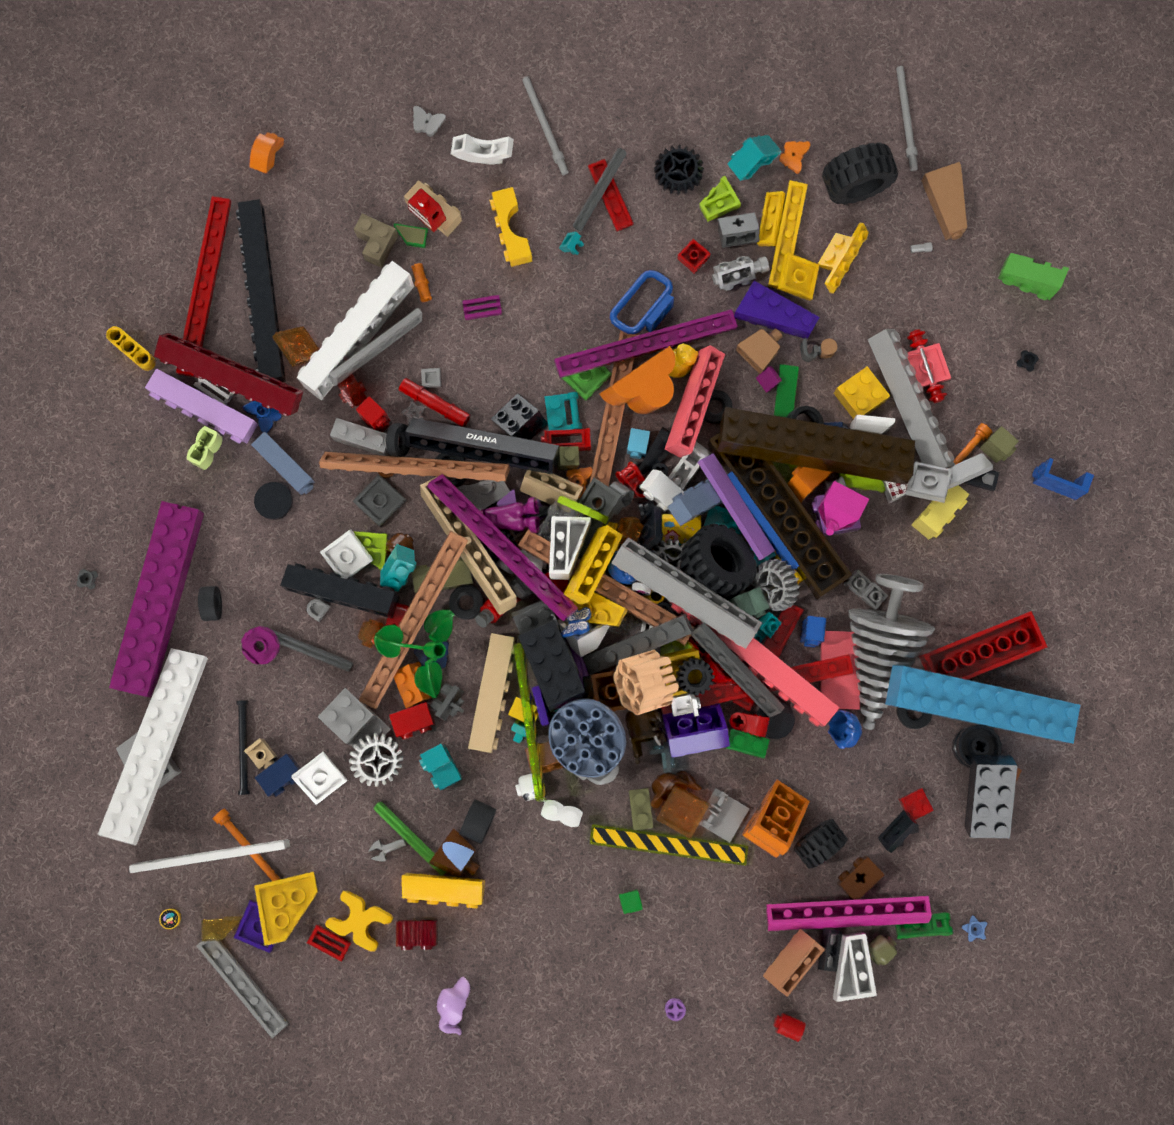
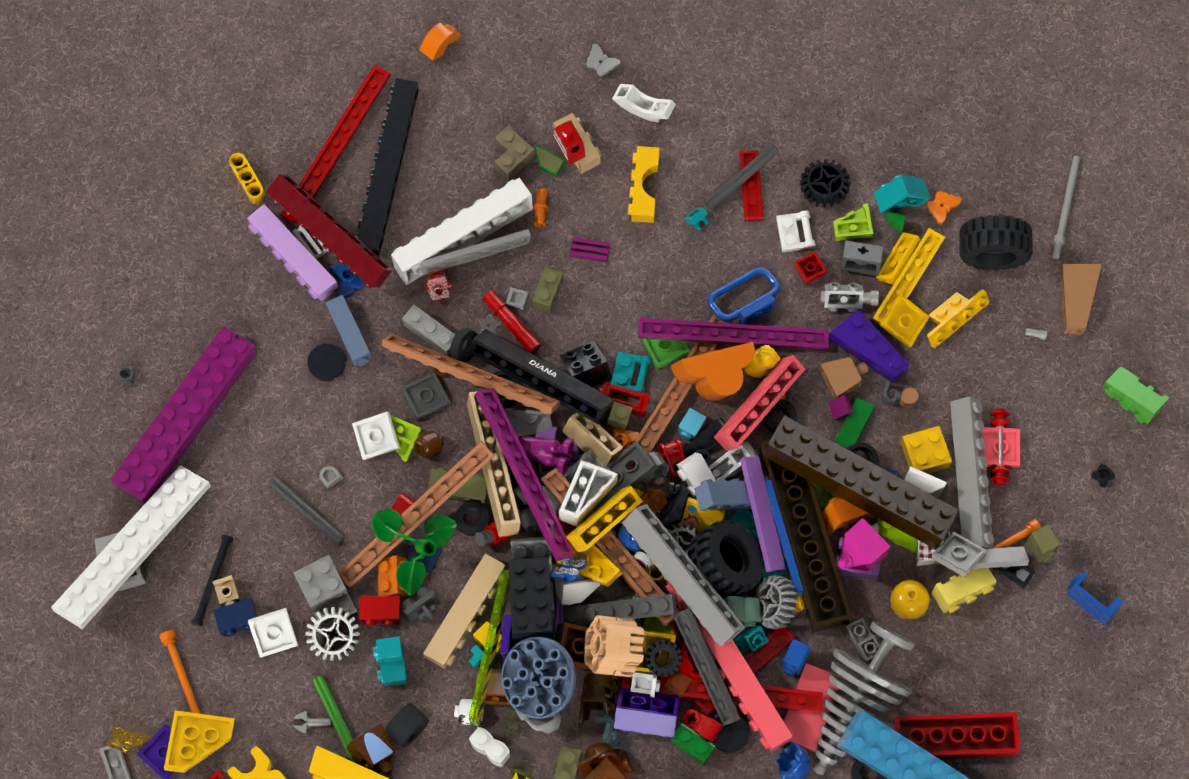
camera: 20 degrees right, 10 degrees down
(170, 918) = (84, 715): tile -> none
(202, 452) = (284, 289): yellowish green brick -> none
(209, 856) = (144, 668): white tile -> none
(210, 603) = (232, 435): black tyre -> none
(270, 642) = (274, 494): magenta tile -> none
(296, 345) = (401, 225): clear orange plate -> none
(340, 591) = (358, 465): black brick -> none
(368, 631) = (367, 512): clear orange head -> none
(373, 415) = (449, 313): red brick -> none
(397, 567) = (419, 462): teal brick -> none
(457, 360) = (547, 290): none -> olive brick
(558, 156) = (714, 133): light grey bar -> none
(583, 509) = (614, 465): lime tile -> none
(662, 229) = (789, 232): none -> white plate
(715, 694) = (678, 683): none -> clear orange plate
(757, 184) = (896, 221): none -> green slope
(894, 537) = (910, 599): none -> yellow cylinder

